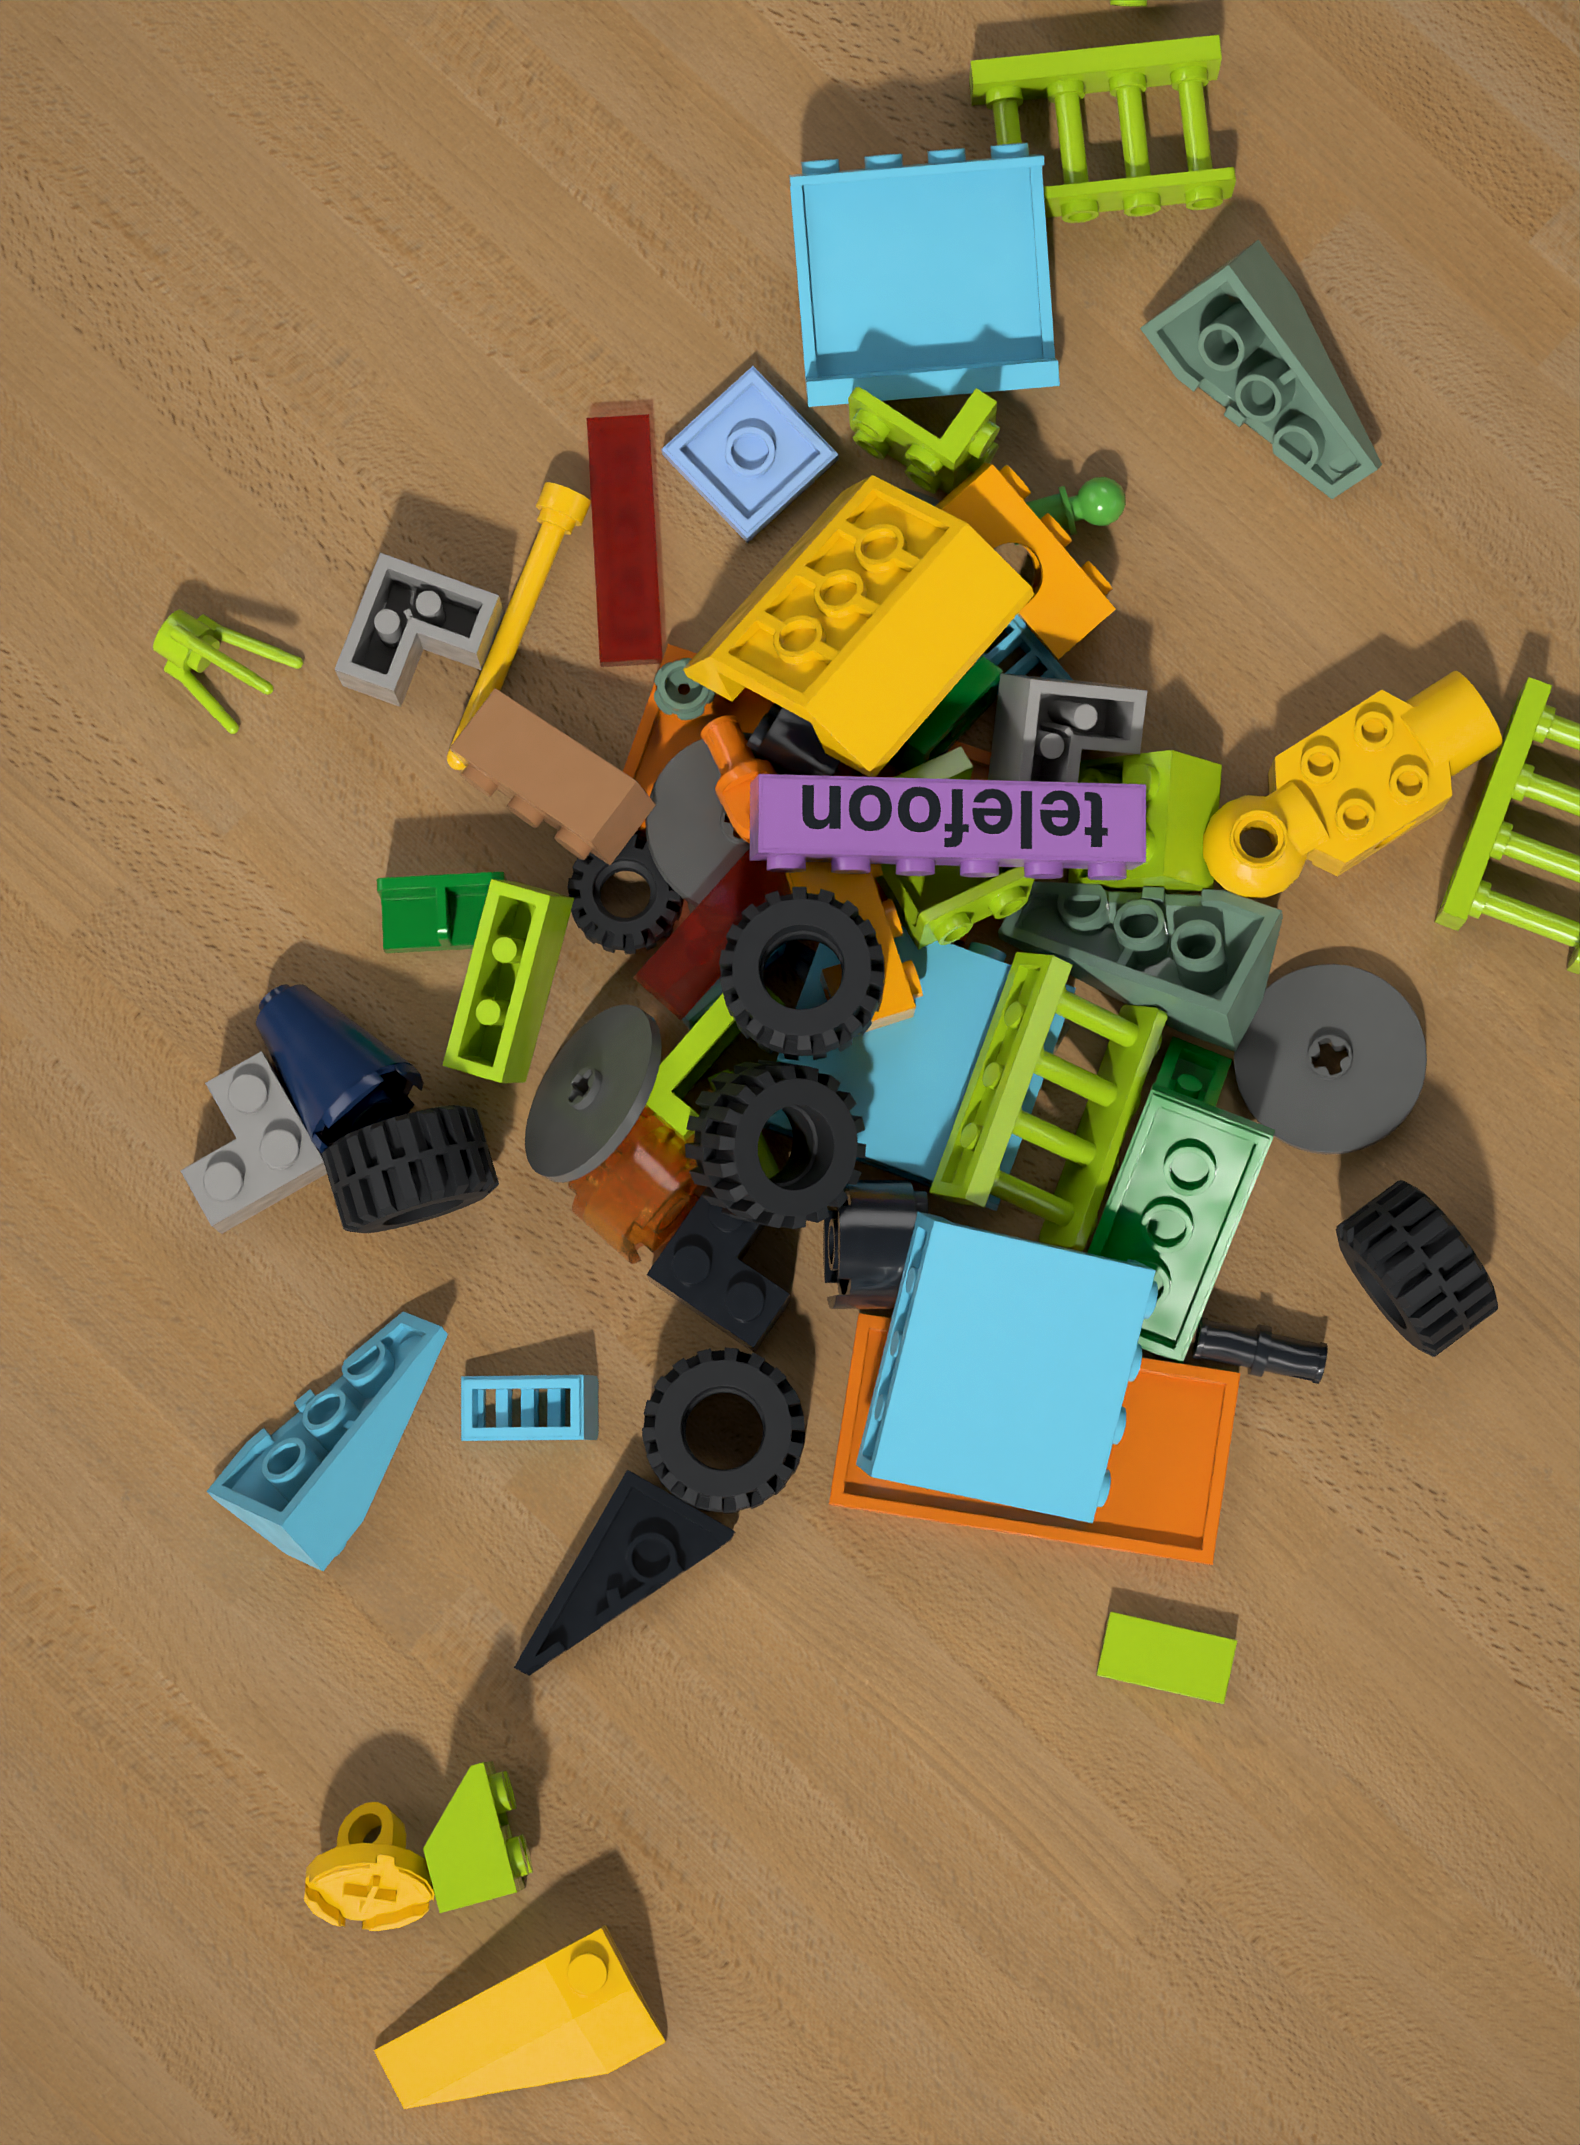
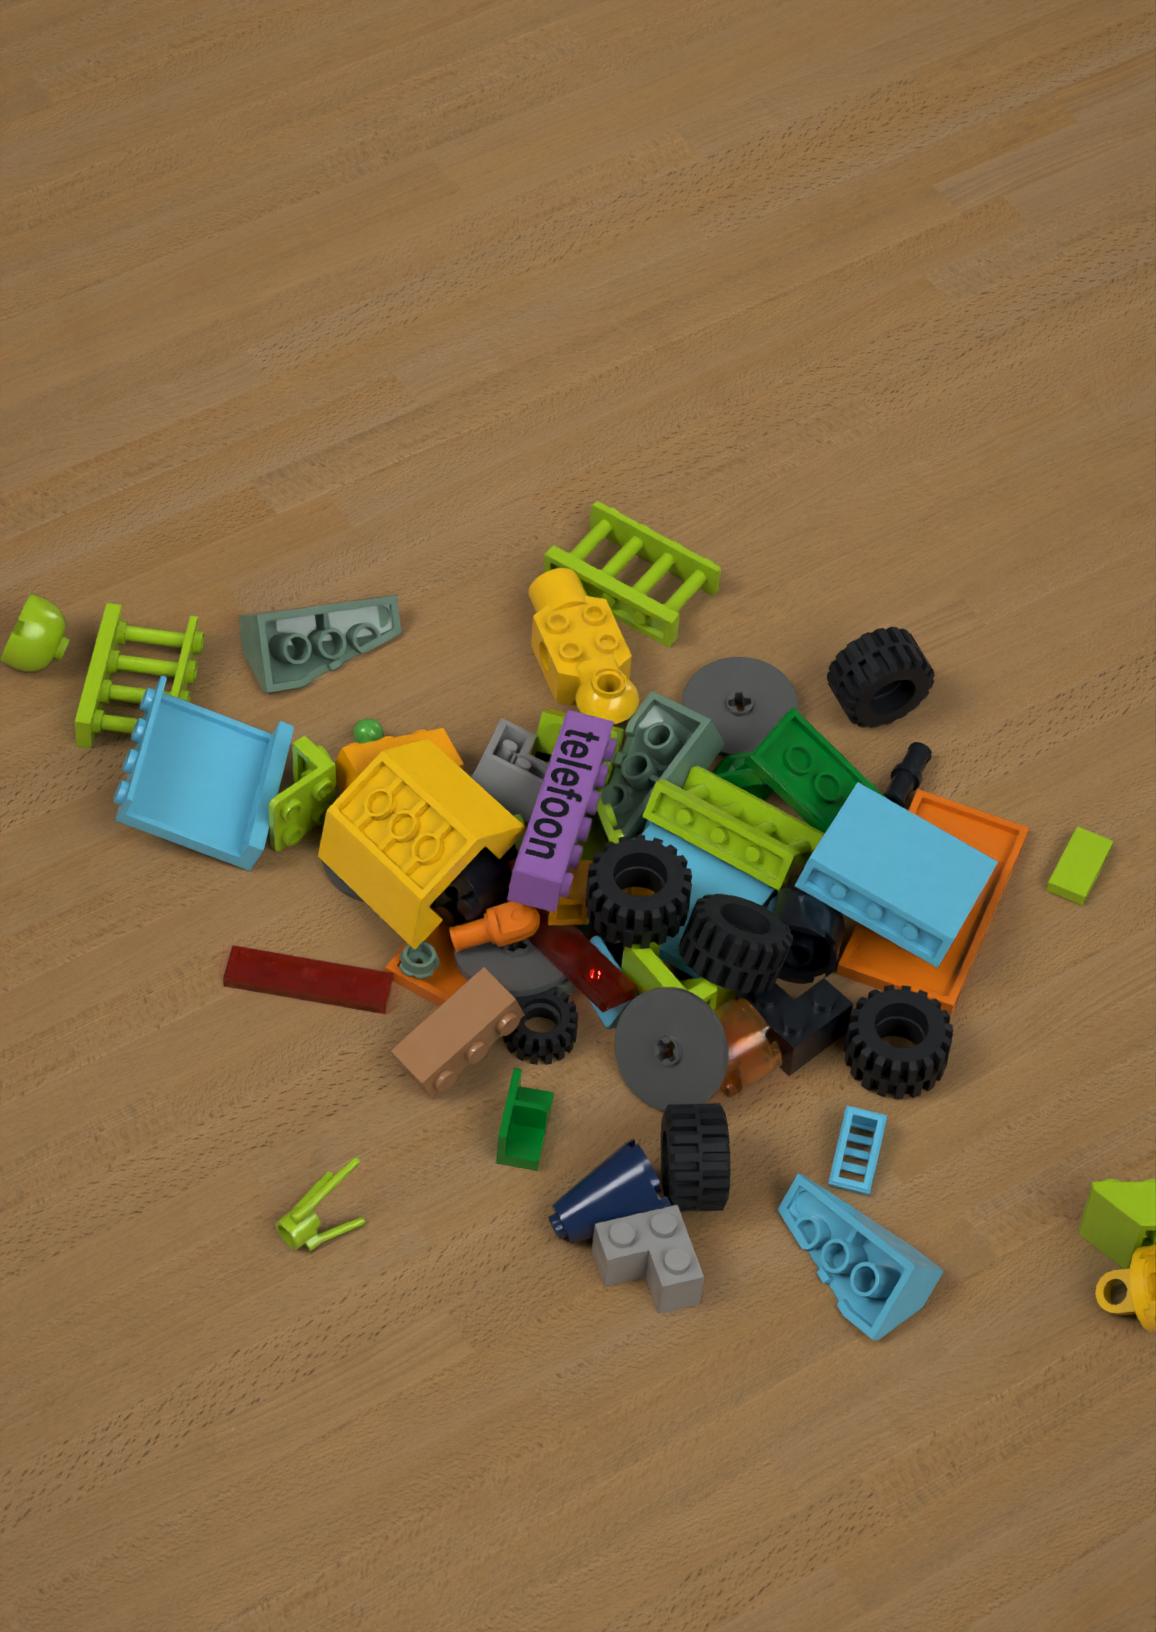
camera: 85 degrees left, 30 degrees down
(410, 612) = (329, 1089): light grey brick -> none
(508, 981) = (585, 1083): lime brick -> none
(559, 514) = (279, 1004): yellow piece -> none
(630, 1554) = (963, 1116): black wing -> none
(750, 454) = (275, 903): light blue tile -> none

